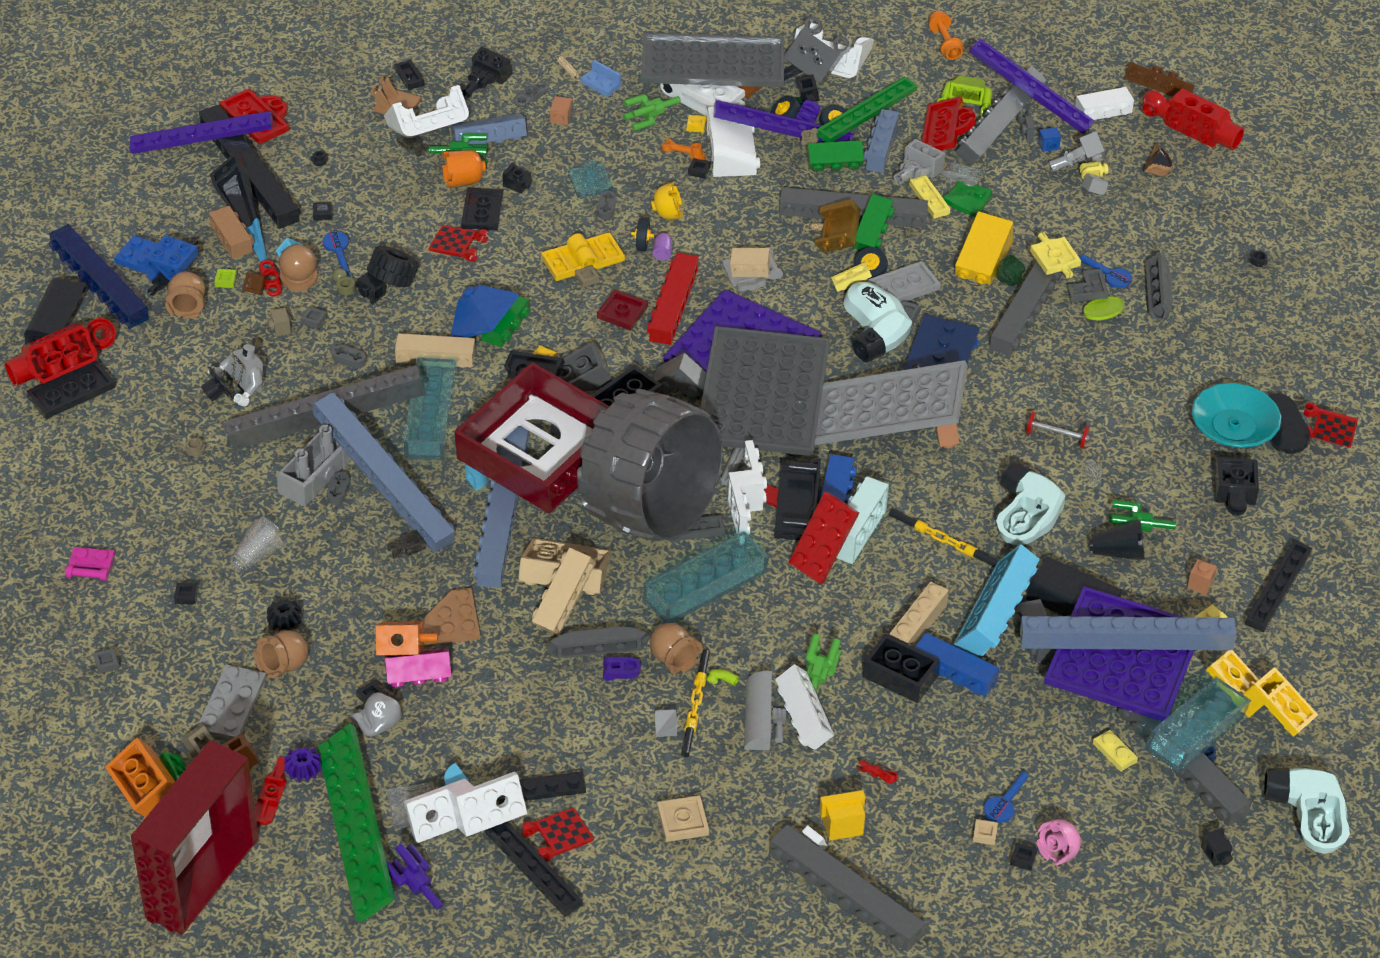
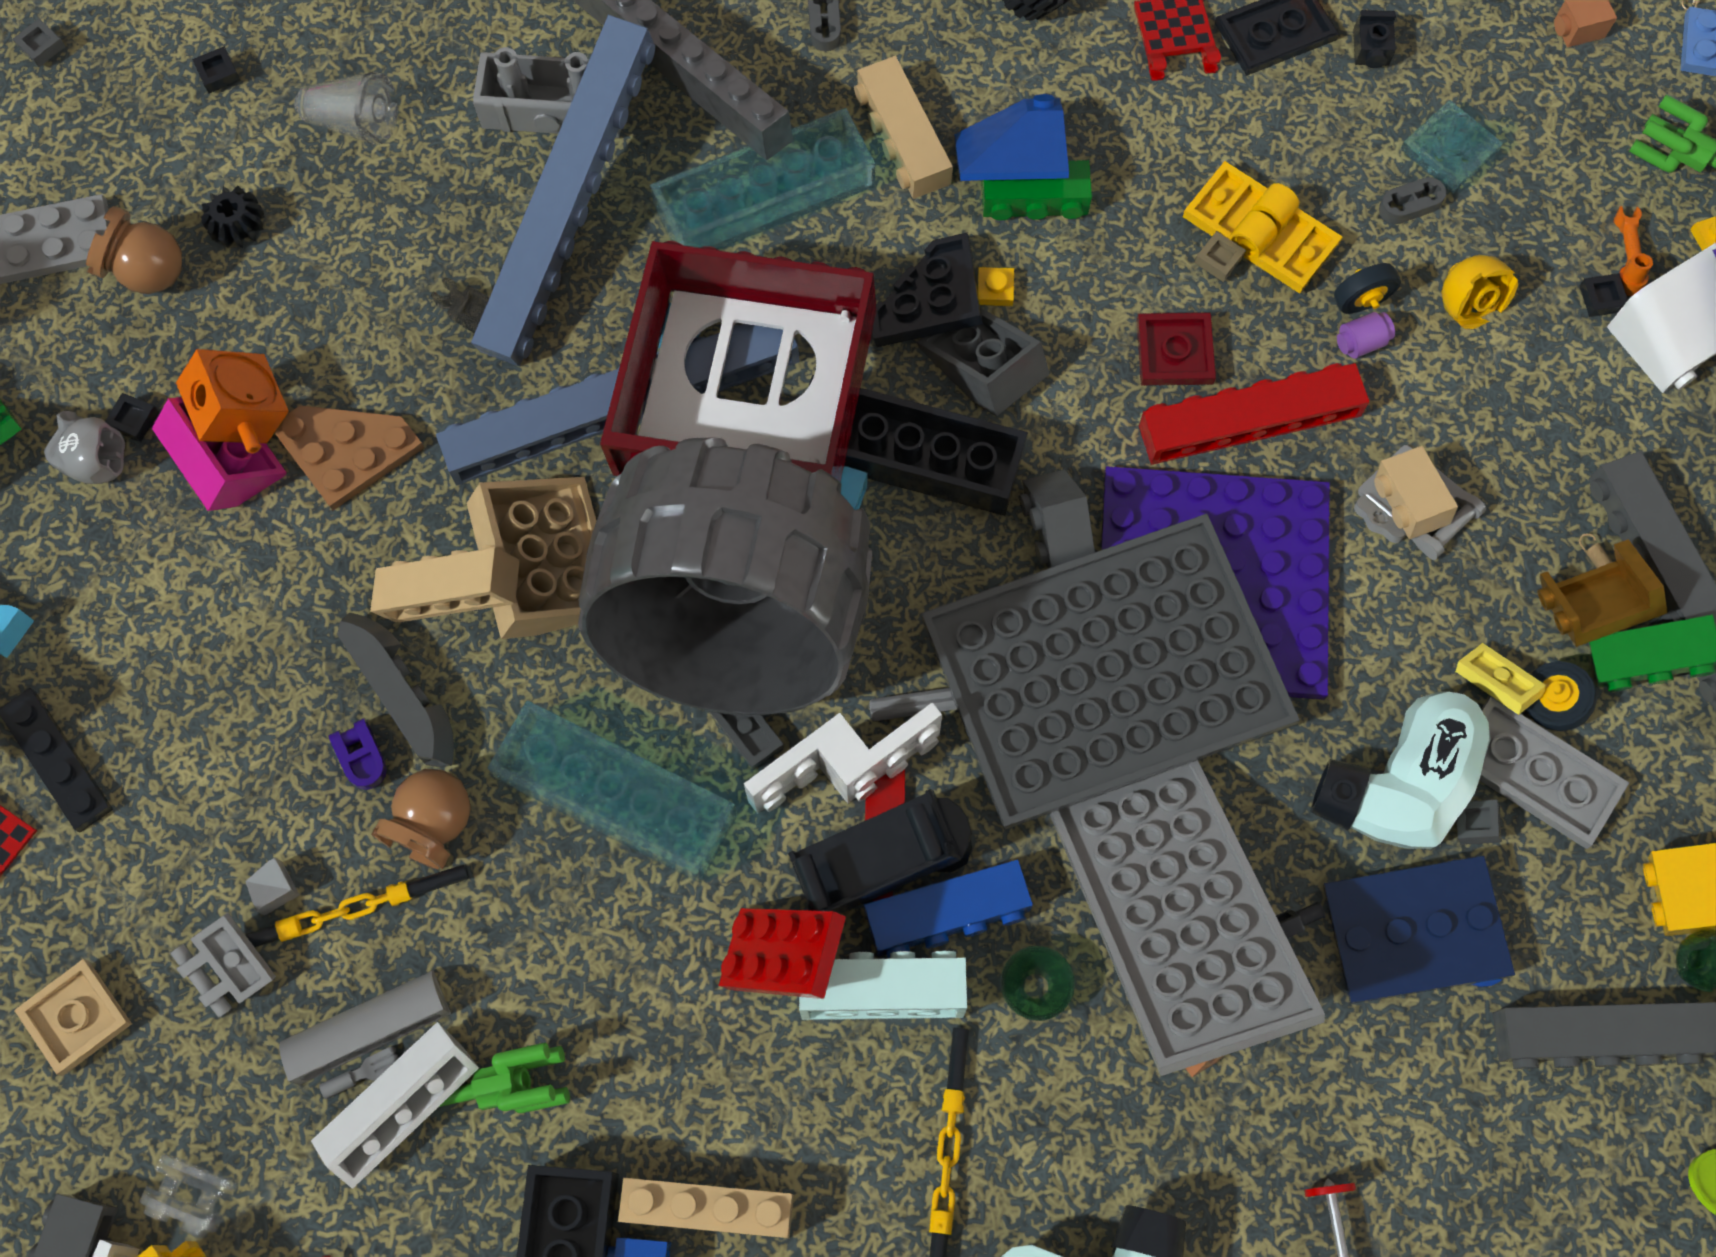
camera: 65 degrees right, 25 degrees up
(335, 487) = (536, 151): dark grey beam -> none
(698, 743) = (231, 958): none -> light grey plate
(724, 675) = (422, 922): lime arm -> none
(797, 800) = (198, 1216): none -> clear brick
(889, 469) = (1049, 965): none -> clear green piece

